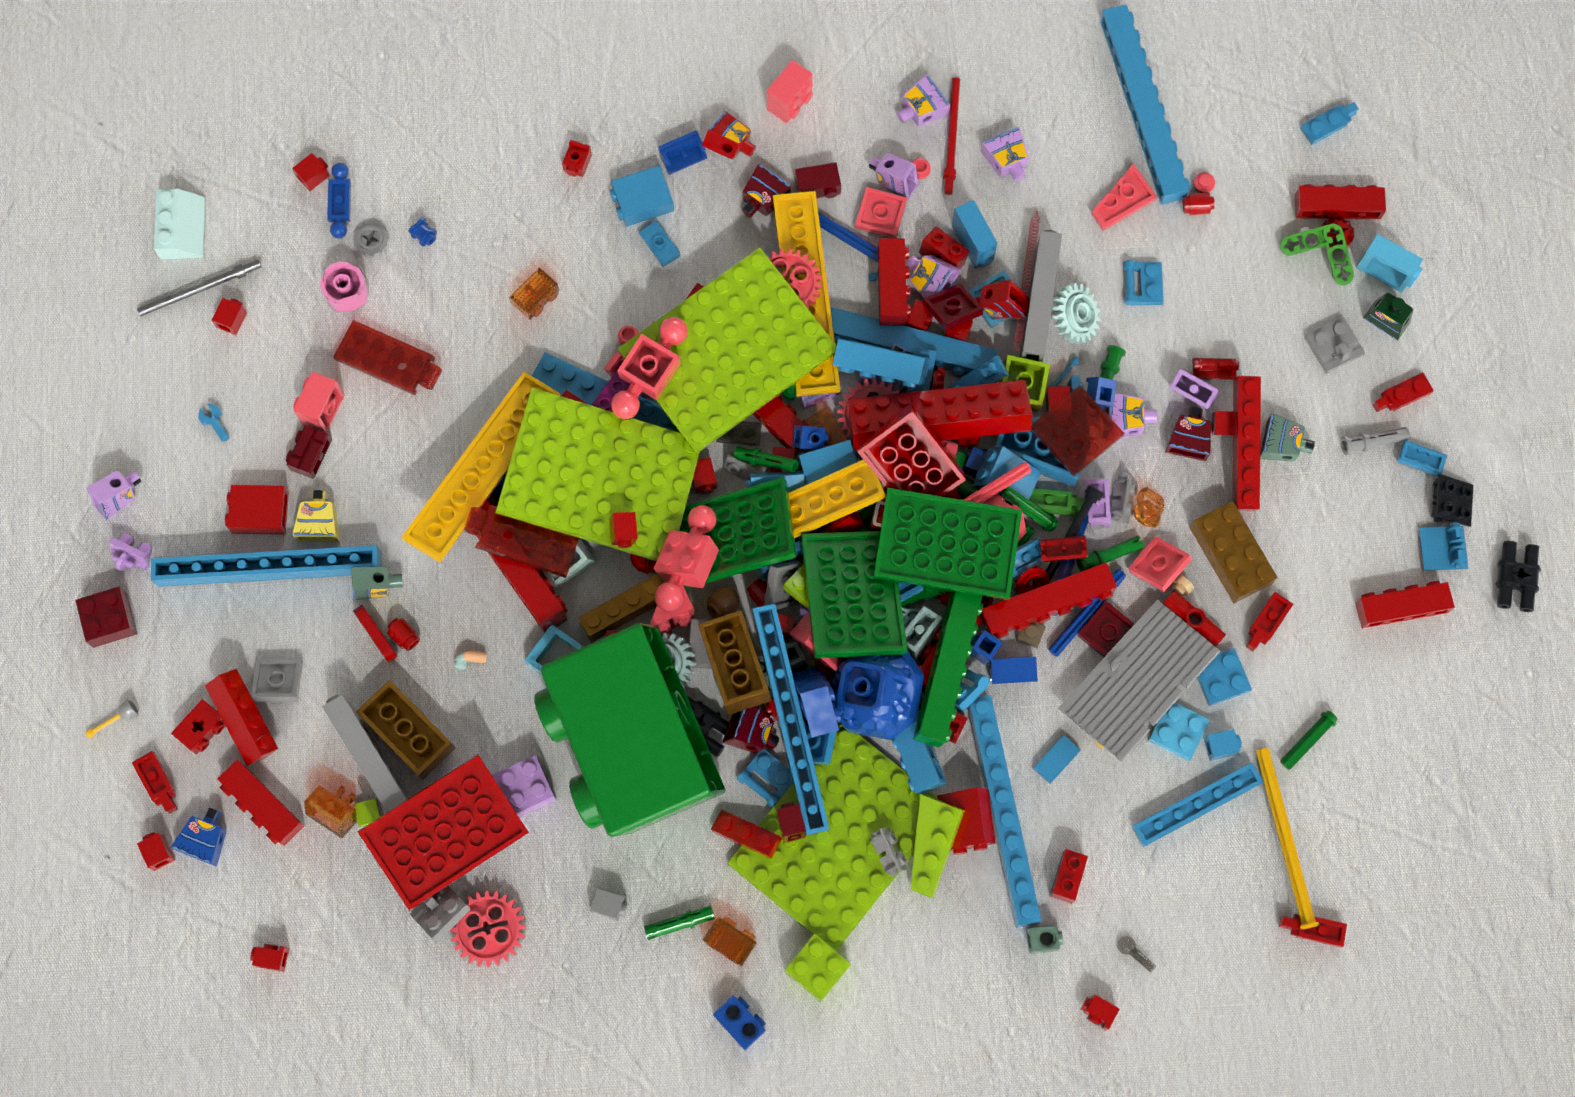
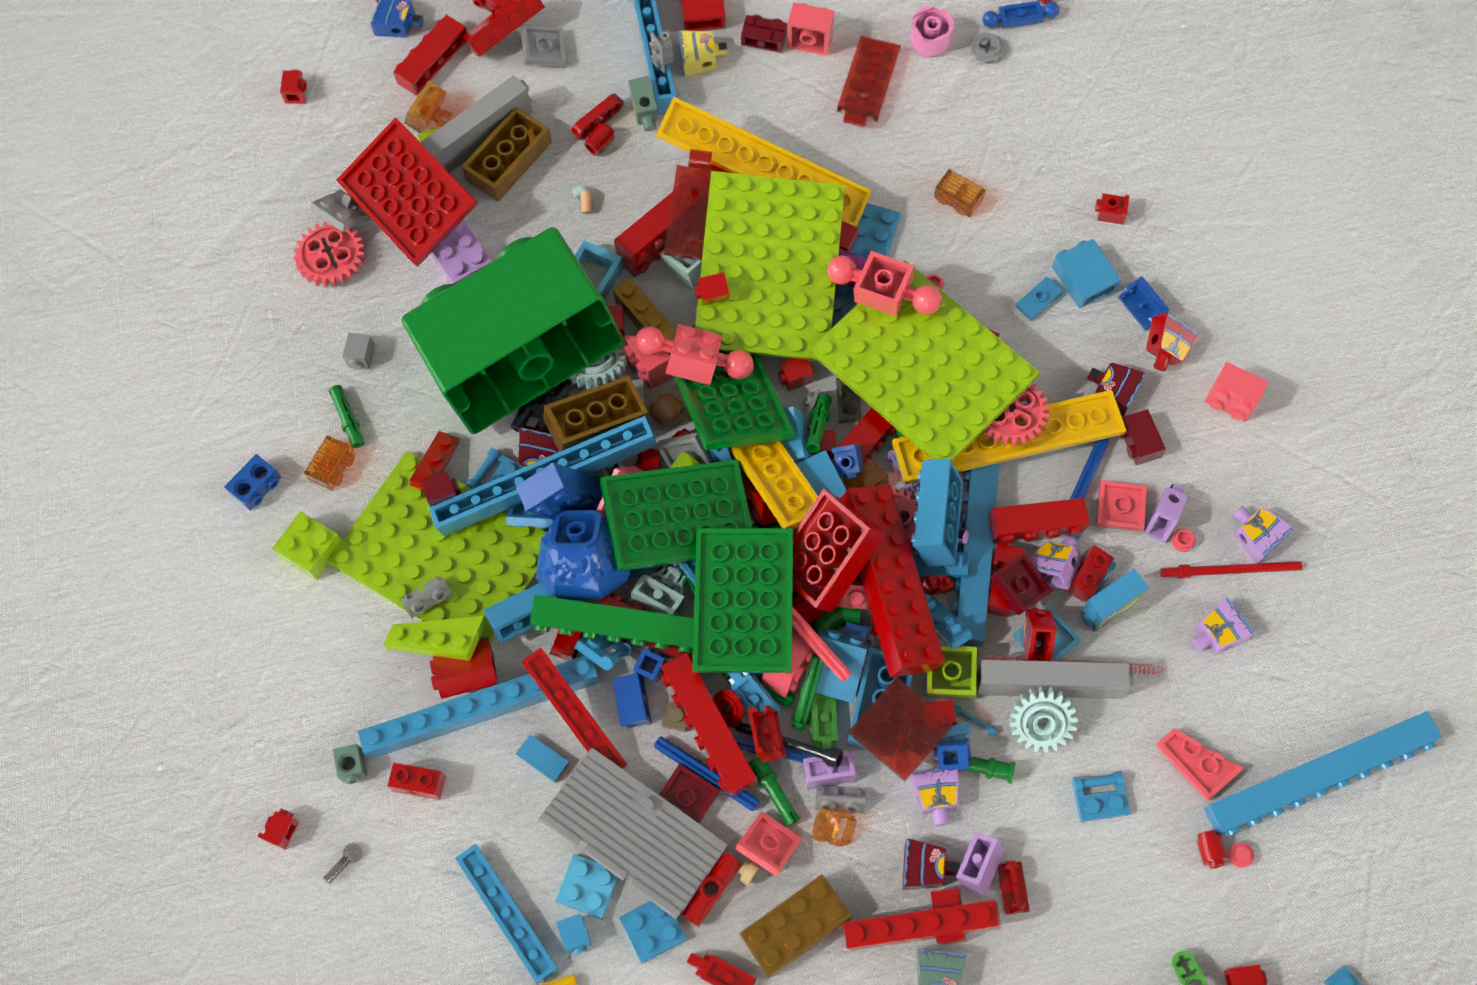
camera: 85 degrees right, 5 degrees down
(328, 550) = (661, 50): none -> light grey hinge
(423, 232) = (1003, 88): blue brick -> none
(1019, 721) = (570, 706): none -> red plate

